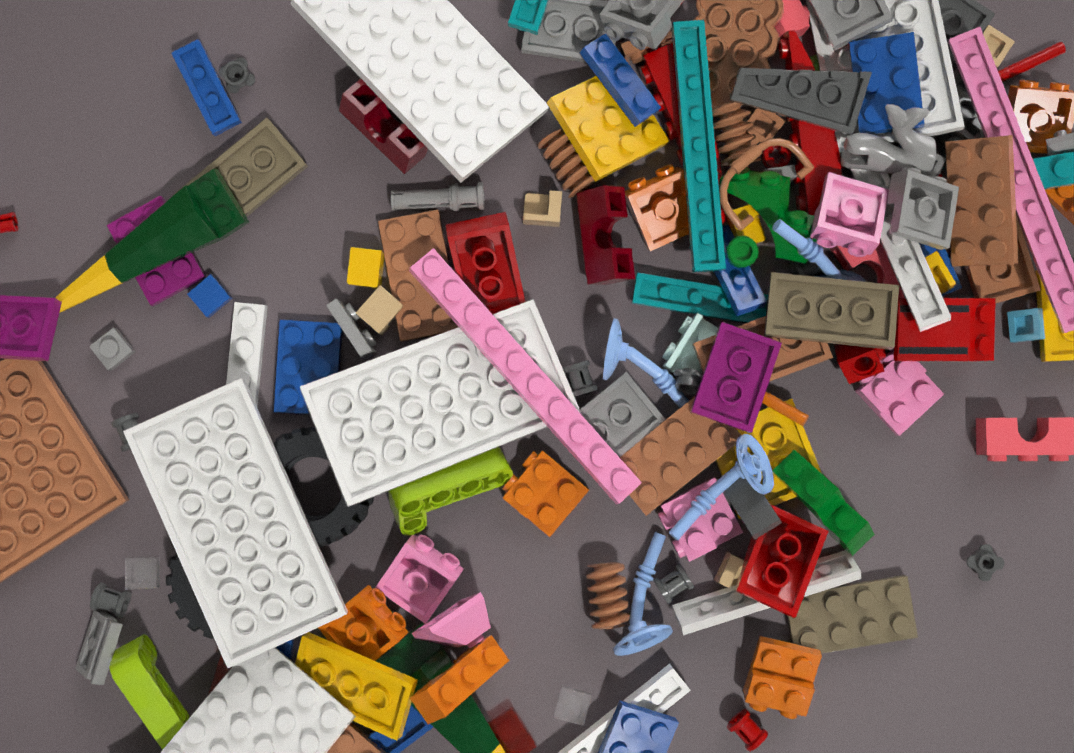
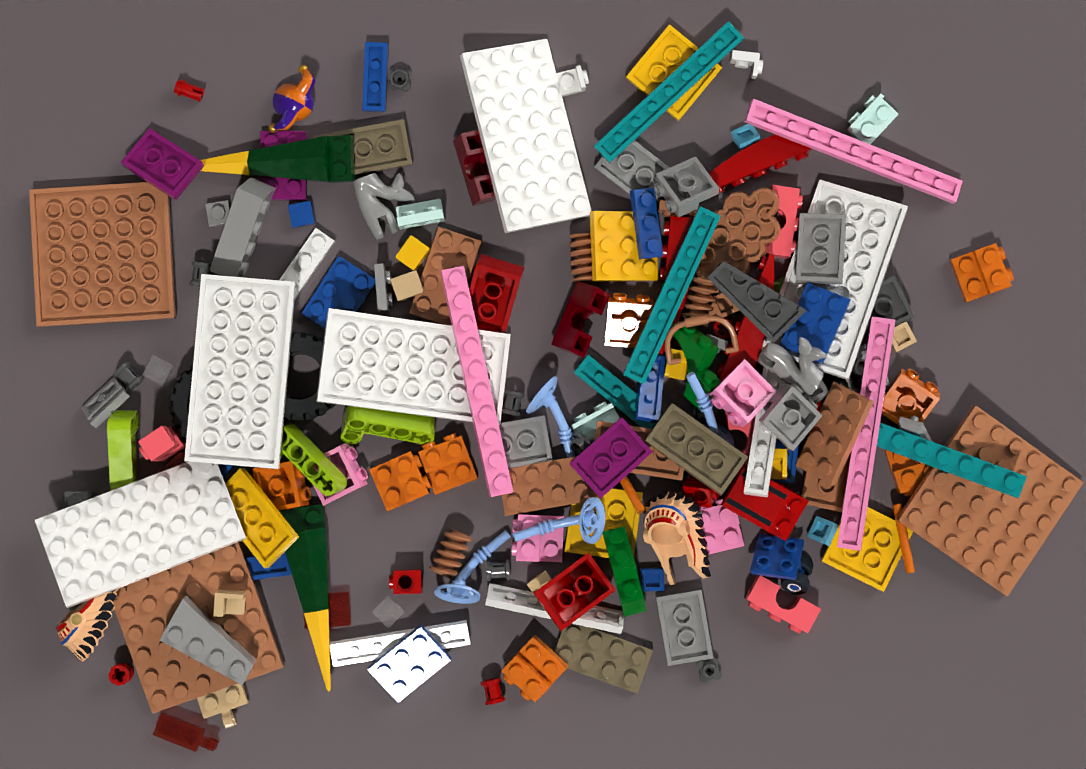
camera: 25 degrees right, 0 degrees up
(126, 168) = (293, 101): none -> piece
(145, 349) = (242, 228): none -> light grey wedge
(189, 662) = (161, 444): none -> coral arch
(293, 245) = (372, 209): none -> light grey piece
(348, 218) = (420, 214): none -> light aqua bracket
(414, 588) = (329, 478): none -> lime beam
(453, 197) = (496, 238): light grey pin -> none
(457, 683) = (326, 552): orange arch -> none
(458, 625) = (344, 517): bright pink slope -> none
(500, 543) = (400, 480): none -> orange plate
(542, 209) = (550, 278): tan panel -> none
(576, 644) = (416, 577): none -> red brick
(742, 251) = (661, 379): green tile -> none
(752, 508) = (574, 548): dark grey tile -> none
(858, 421) = (675, 530): none -> light nougat piece
(859, 492) = (652, 579): none -> blue tile
(929, 528) = (684, 627): none -> light grey plate
(1000, 387) = (782, 560): none -> blue plate
(1032, 61) = (921, 360): red bar -> none

